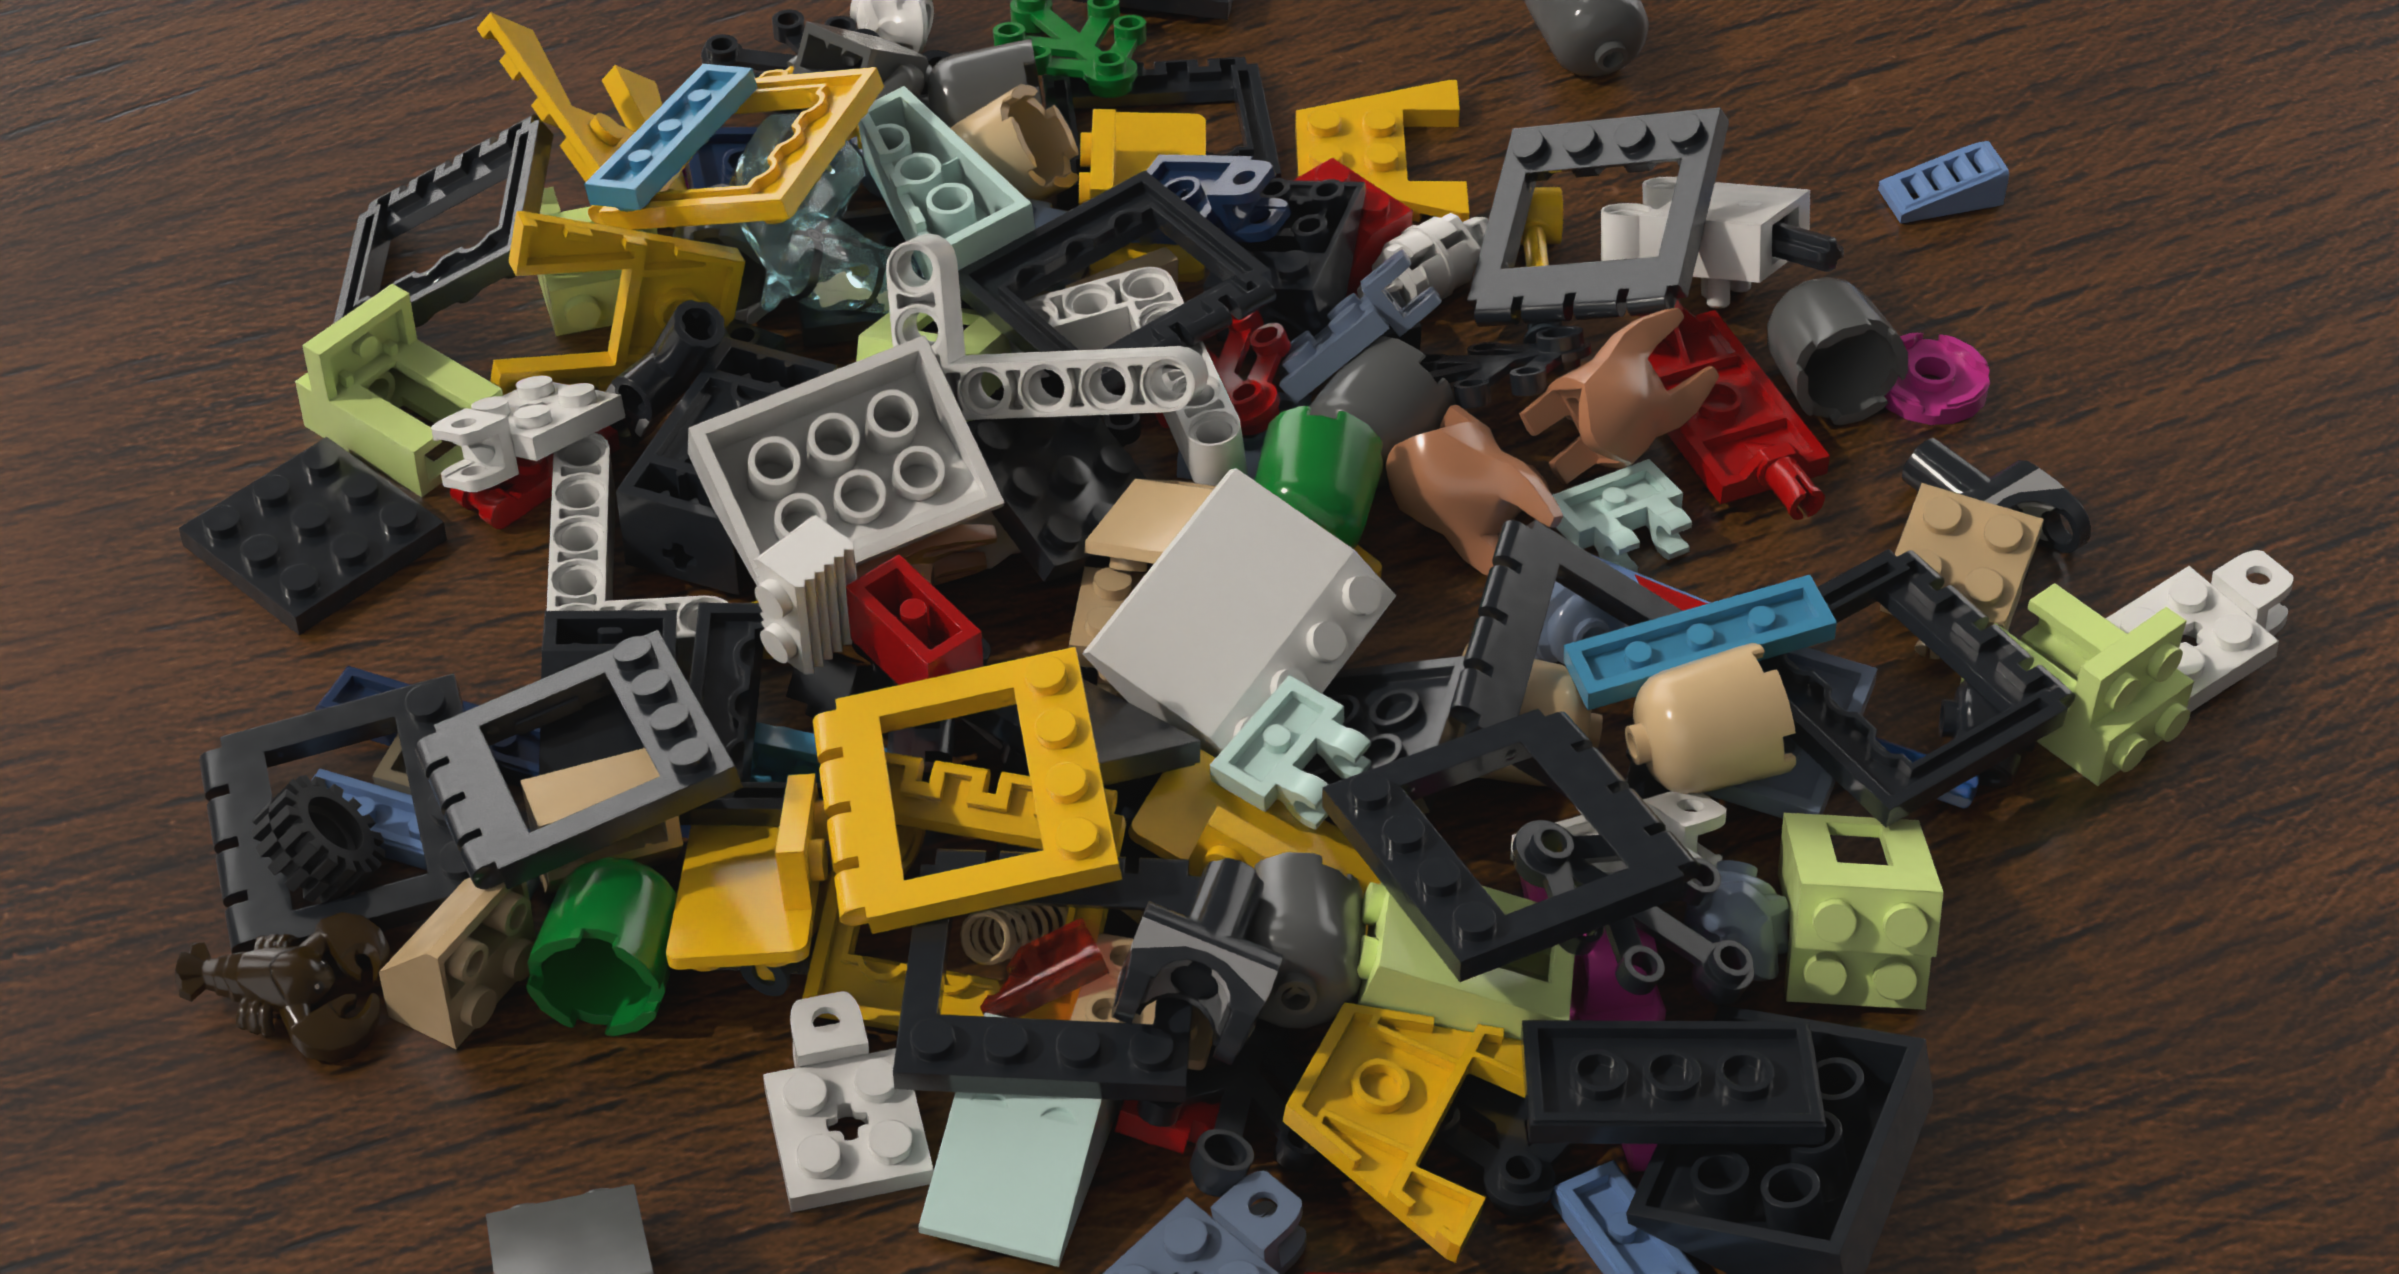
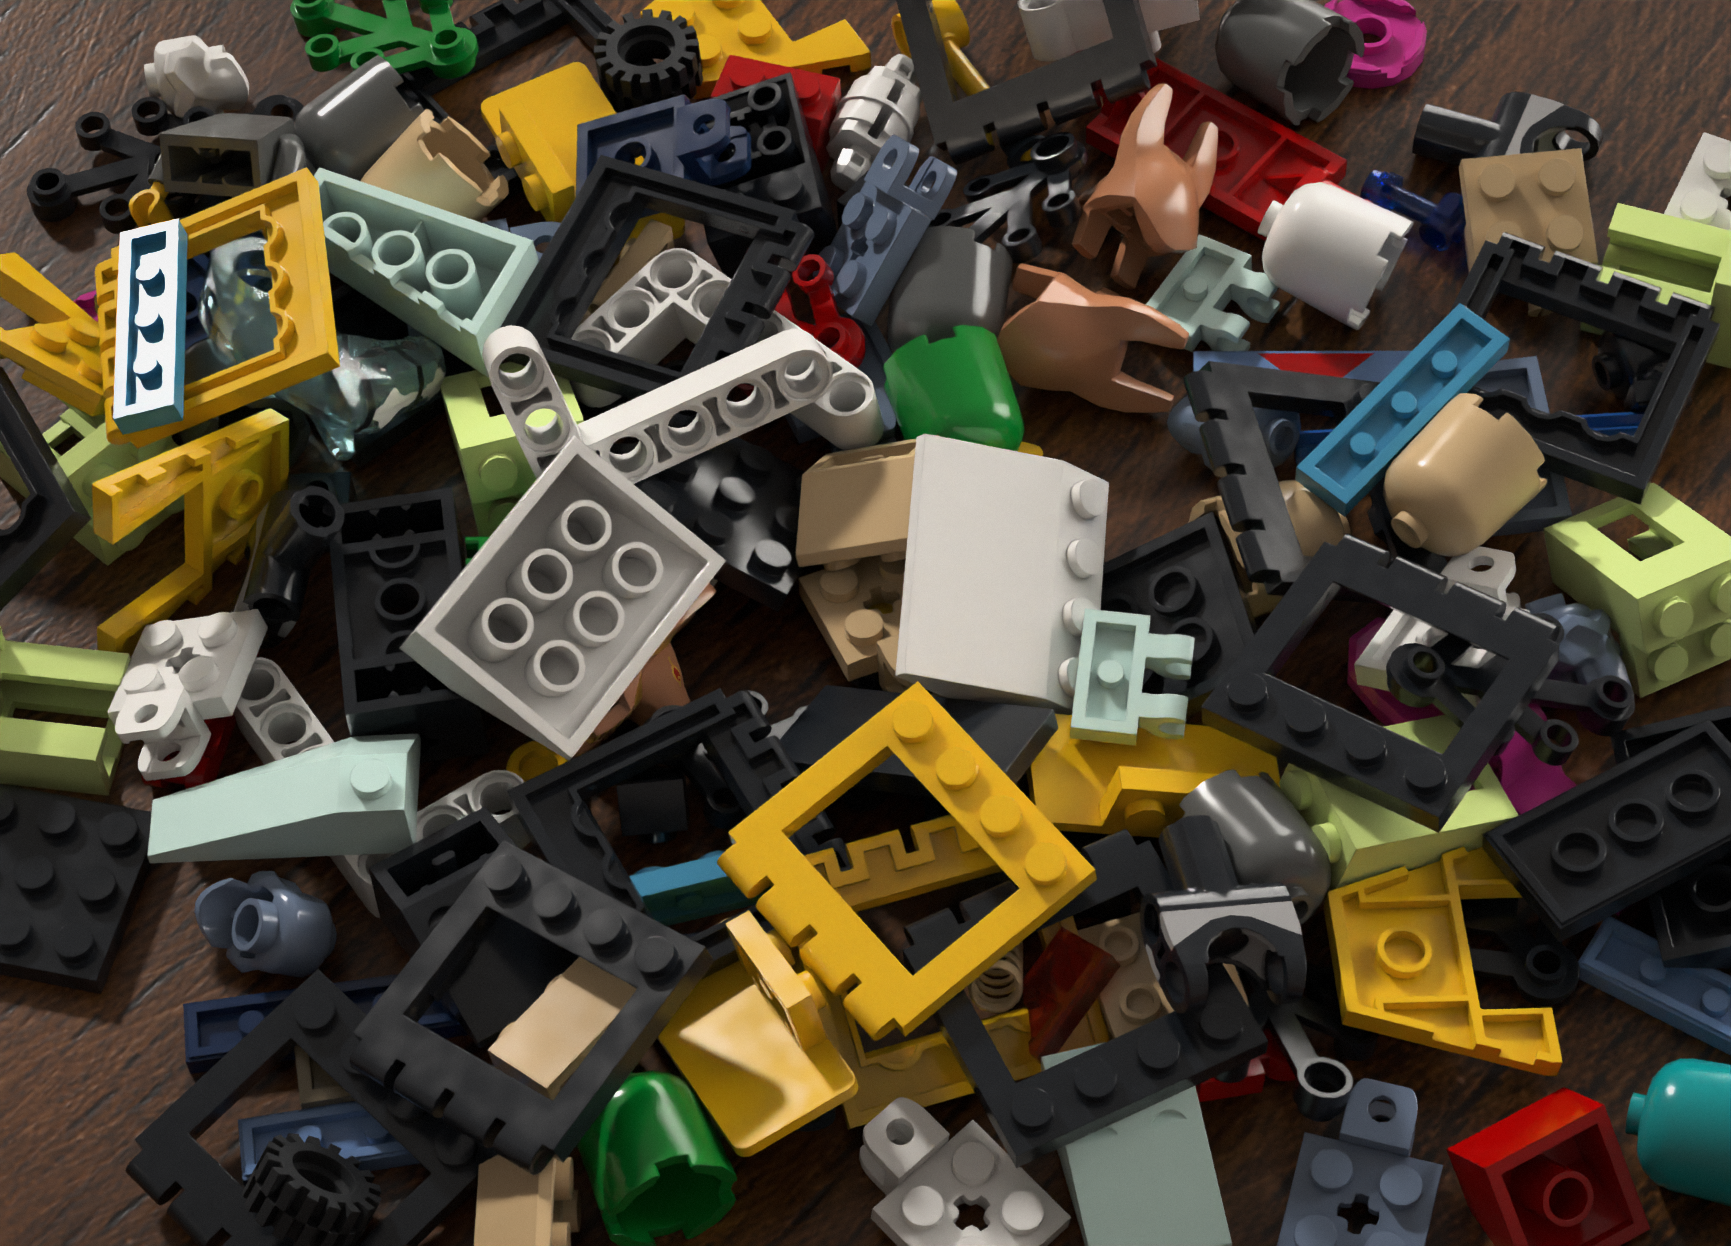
camera: 25 degrees left, 10 degrees up
(453, 631) = (266, 924): none -> sand blue head
(539, 552) = (320, 802): none -> light aqua wedge
(806, 595) = (632, 742): white brick -> none
(910, 625) = (746, 730): red brick -> none
(1267, 132) = (646, 40): none -> black tyre
(1754, 512) = (1332, 249): none -> white cylinder
(1852, 501) = (1440, 222): none -> clear blue bar

